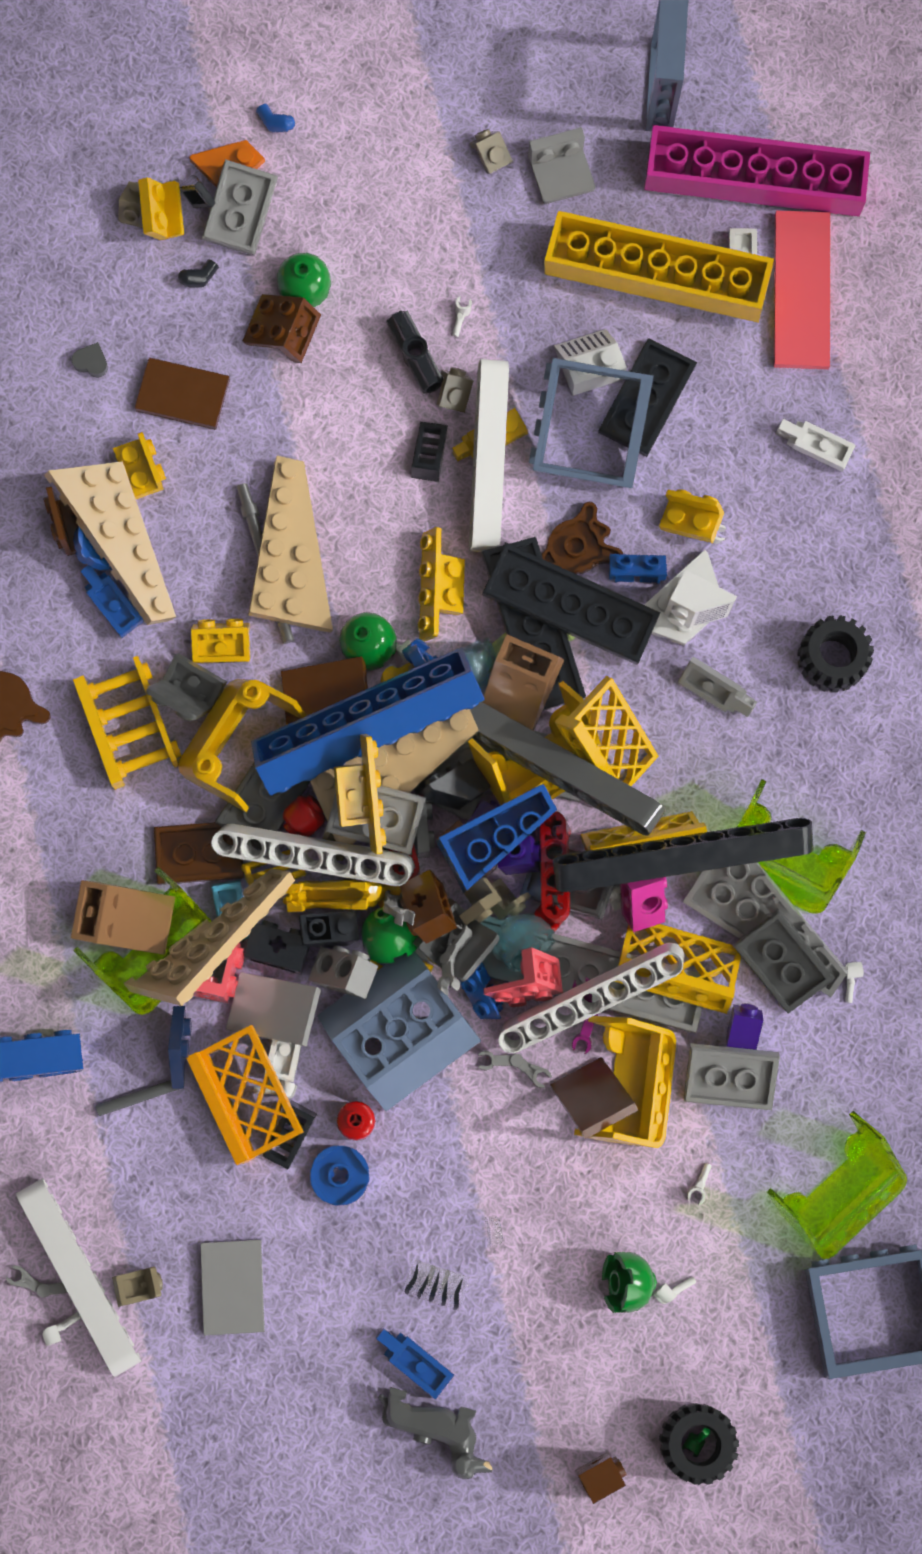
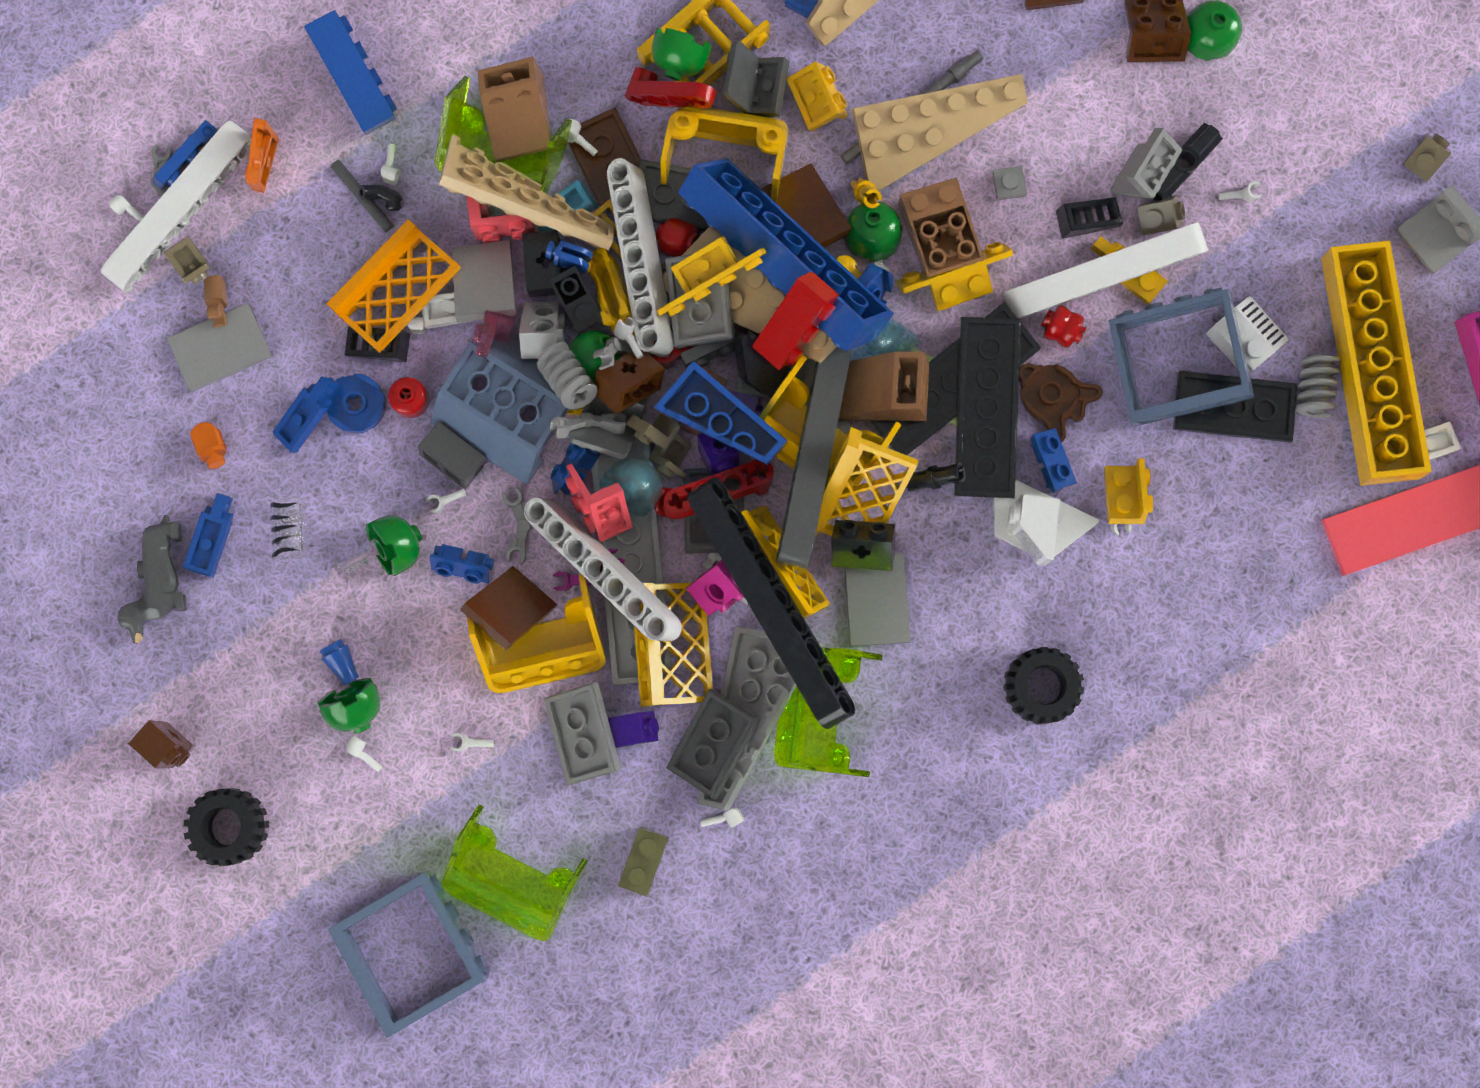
camera: 75 degrees right, 5 degrees up
(30, 1251) = (183, 155): none -> blue hinge
(56, 1172) = (261, 155): none -> orange wing
(130, 1061) = (390, 174): none -> white hand
(137, 746) = (679, 53): none -> green cylinder
(144, 1076) = (378, 192): none -> black arm
(150, 794) = (647, 91): none -> red beam
(171, 871) = (574, 136): none -> white hand
(178, 1045) = (416, 208): dark blue wing -> none
(186, 1272) = (216, 299): none -> medium nougat bar
(285, 918) = (569, 255): none -> blue arm
(324, 1331) = (209, 444): none -> orange arm
(329, 1016) = (493, 327): none -> clear pink bracket
(332, 632) = (866, 192): none -> yellow axle
(333, 1225) = (305, 413): none -> blue hinge
(370, 506) = (1009, 183): none -> light grey plate
(380, 893) = (624, 332): none -> white hand
(391, 580) = (940, 227): none -> medium nougat slope
(404, 962) = (566, 376): none -> light grey piece
(409, 383) = (1147, 166): none -> light grey bracket
(426, 1101) = (451, 455): none -> dark grey hinge
(441, 731) = (796, 321): none -> red brick
(465, 1124) = (445, 500): none -> white hand
(490, 1184) = (395, 543): none -> green cylinder
(521, 511) = (1063, 326): none -> red piece
(525, 1143) = (447, 561): none -> blue hinge
(579, 1279) = (339, 661): none -> blue cone
(617, 667) = (936, 476): none -> black pin
(654, 758) = (863, 545): none -> black brick
(657, 321) = (1316, 385): none -> light grey piece
(696, 1441) = (228, 824): green hand -> none
(704, 768) = (878, 605): none -> light grey tile
(716, 688) = (961, 582): light grey hinge -> none
(817, 443) = (1257, 591): white hinge -> none
(867, 1064) = (643, 861): none -> olive brick

